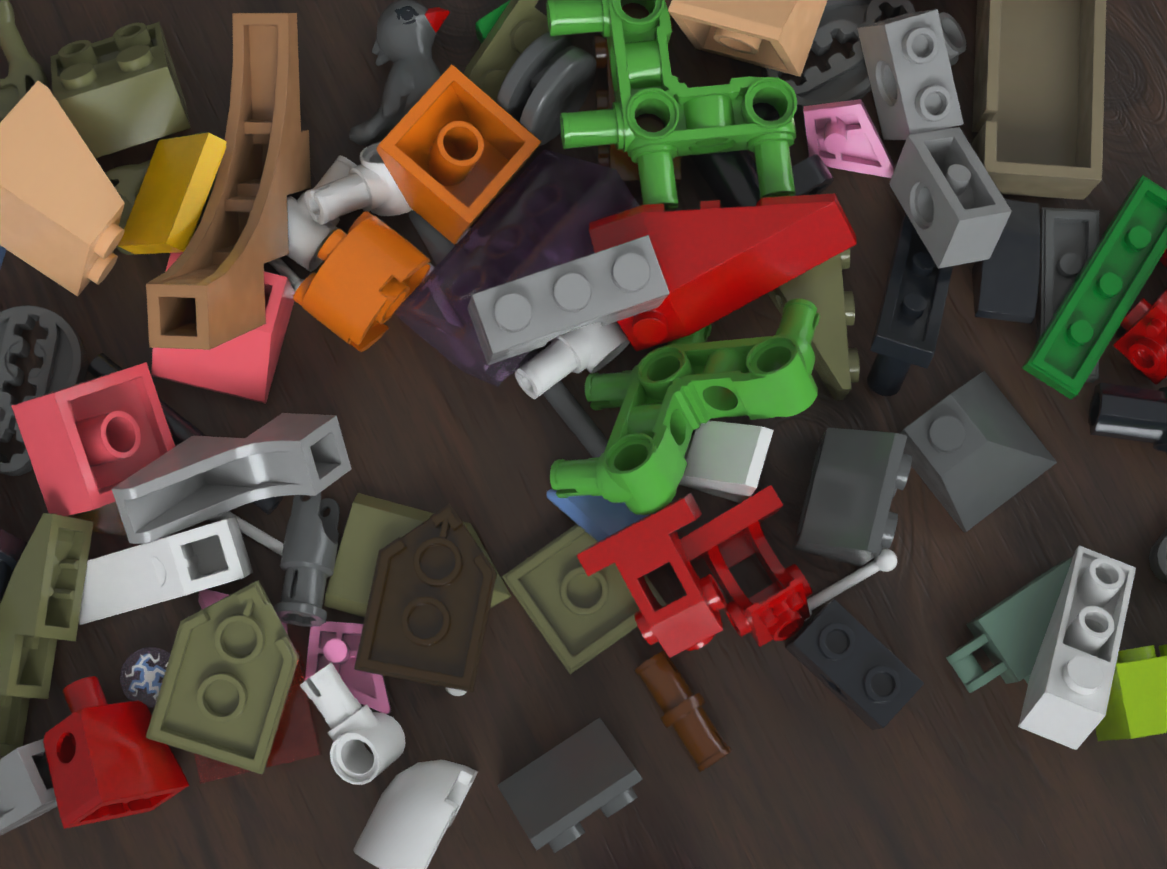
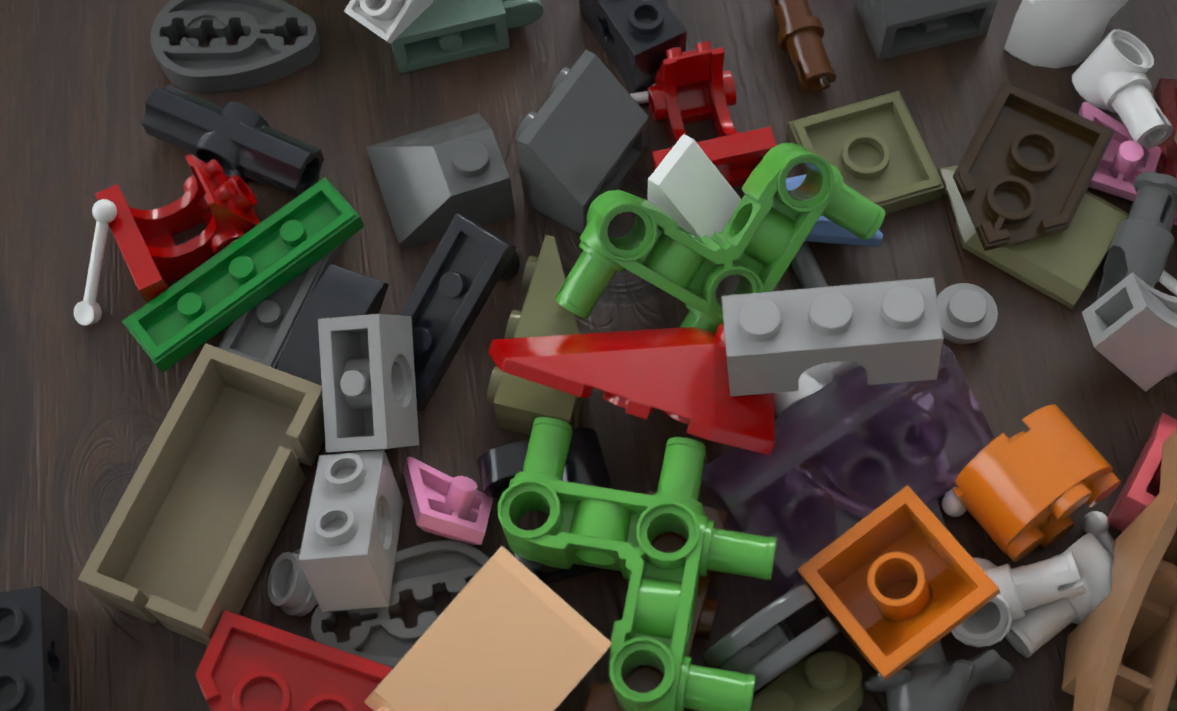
camera: 155 degrees left, 15 degrees down
(454, 450) = (966, 313): none -> light grey plate
(645, 546) = (793, 101): red tile -> none

